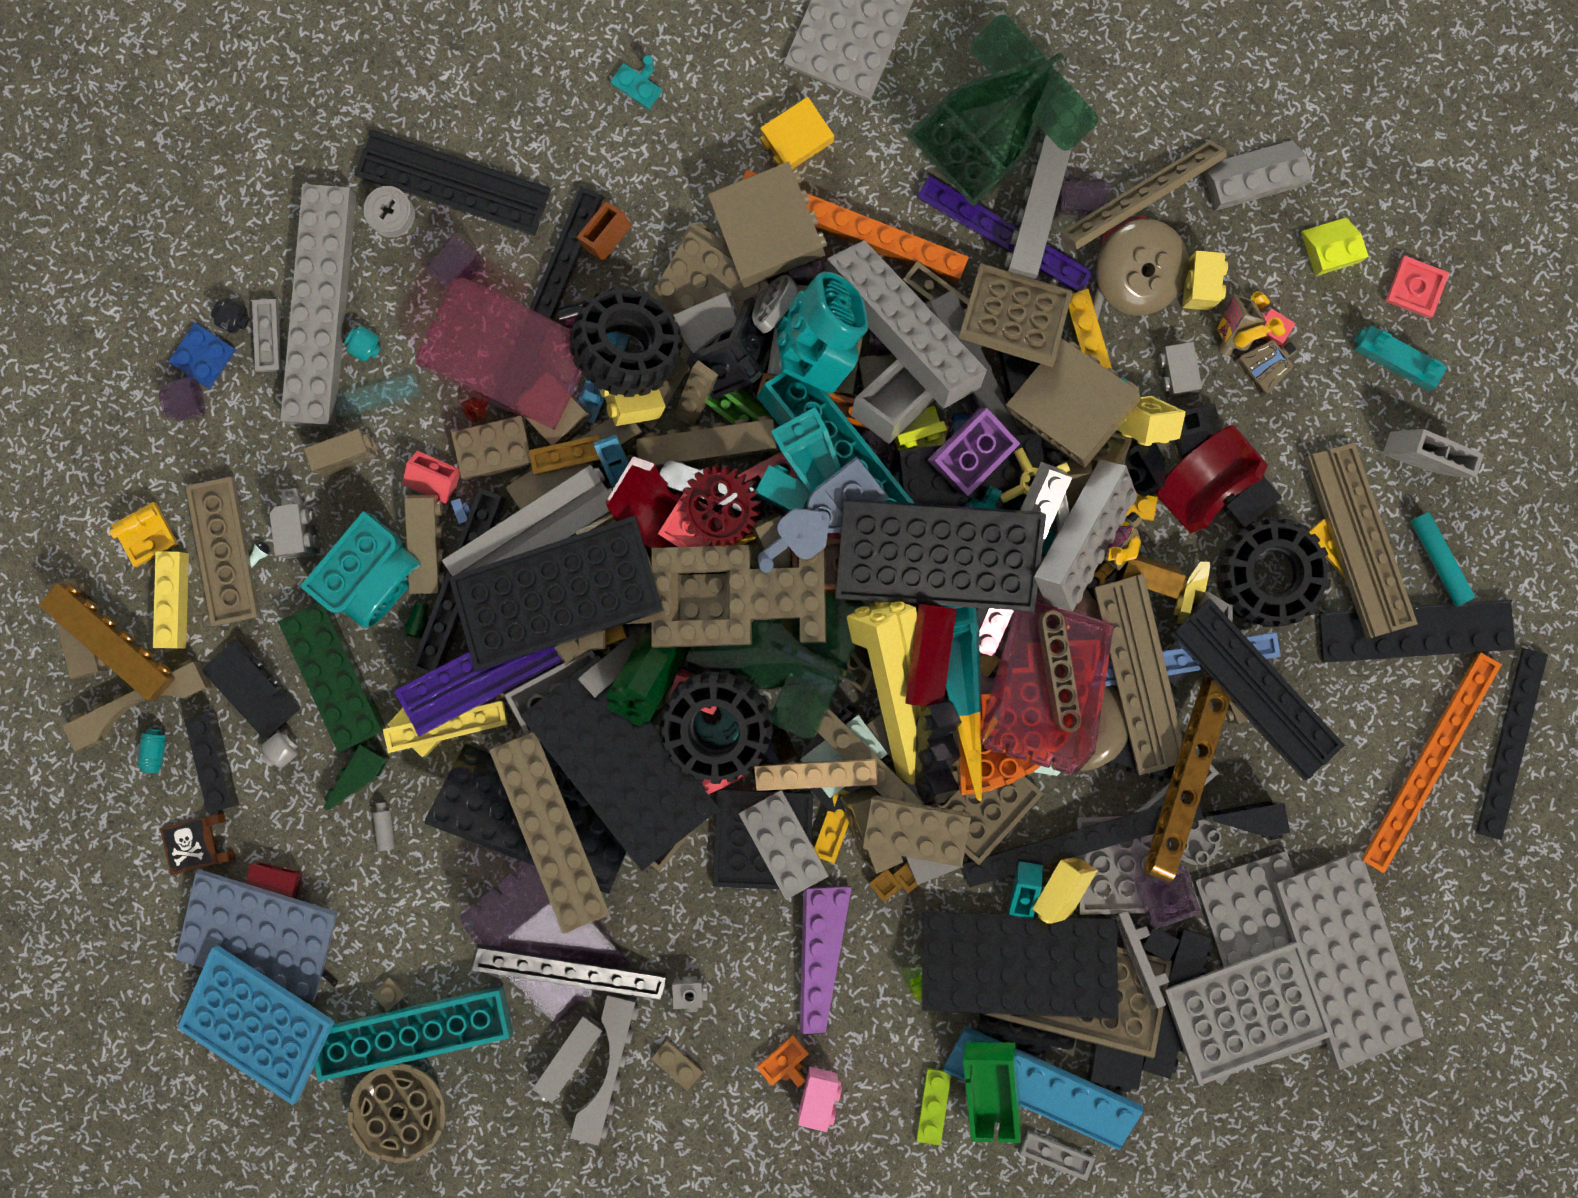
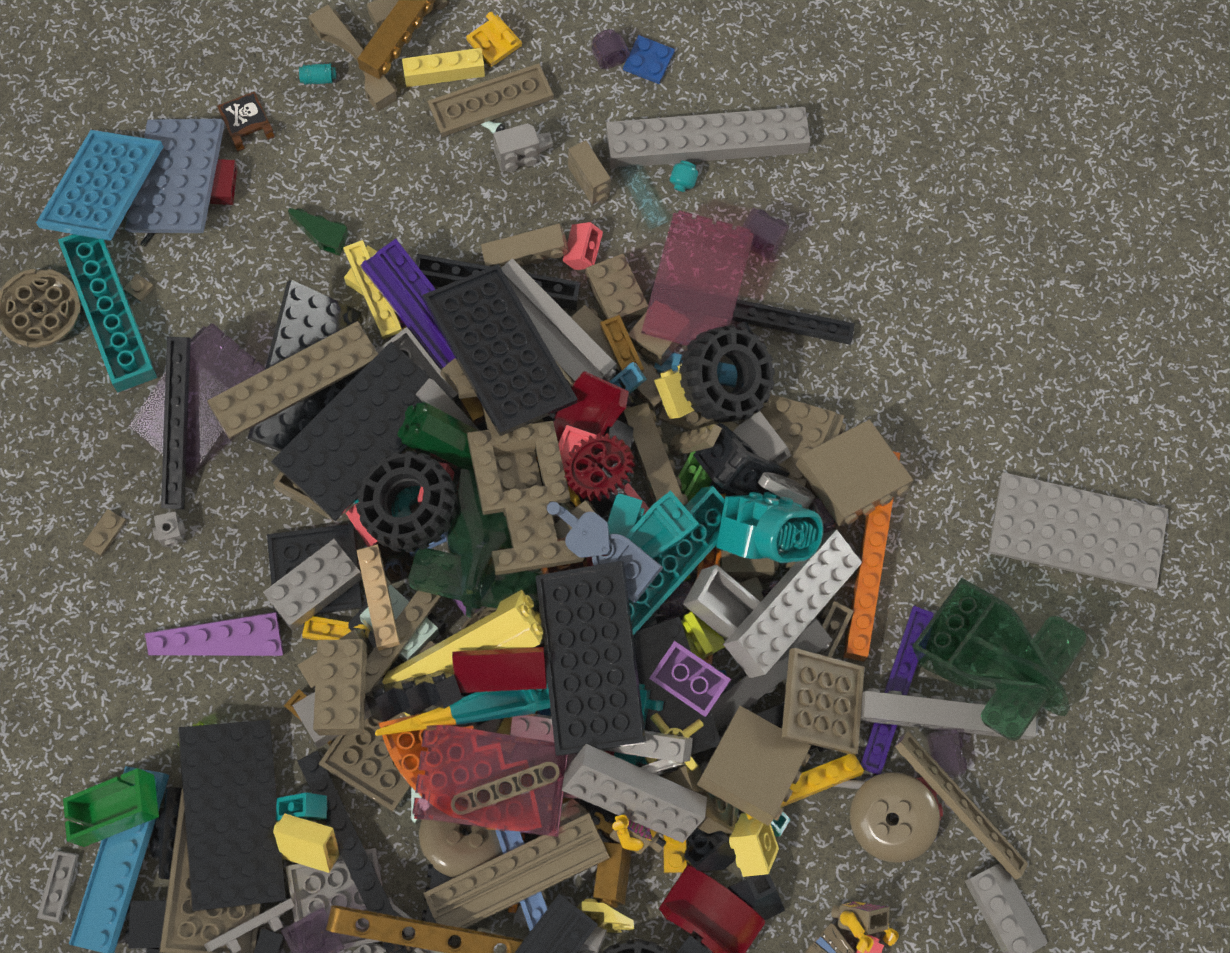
camera: 70 degrees right, 15 degrees down
(211, 762) = (314, 119): black brick -> none
(230, 315) = (685, 73): black head -> none
(251, 688) = (380, 140): black bracket -> none
(266, 335) = (675, 103): light grey plate -> none
(279, 749) = (333, 168): light grey head -> none
(332, 676) = (401, 198): dark green brick -> none
(363, 572) = (491, 203): teal brick -> none
(383, 828) = (279, 259): light grey cylinder -> none
(390, 199) = (801, 168): light grey piece -> none
(417, 621) = (460, 254): dark green cone -> none
(453, 182) = (834, 225): black plate -> none
(461, 510) = (560, 272): medium blue plate -> none
(474, 409) = (647, 271): clear red tile -> none
(568, 1058) = (100, 439): light grey brick -> none
(604, 231) = (820, 347): dark orange piece -> none
(616, 1018) = (139, 474): light grey arch -> none
(637, 85) = (953, 356): teal plate -> none
(784, 1063) = (116, 624): orange hinge -> none
(796, 134) = (941, 492): yellow brick -> none
(818, 1099) = (87, 655): bright pink brick -> none
(885, 885) = (288, 684): pearl gold plate -> none
(933, 1106) = (91, 764): lime plate -> none
(1180, 369) = (809, 871): light grey brick -> none
(1205, 280) = (895, 875): light yellow brick -> none

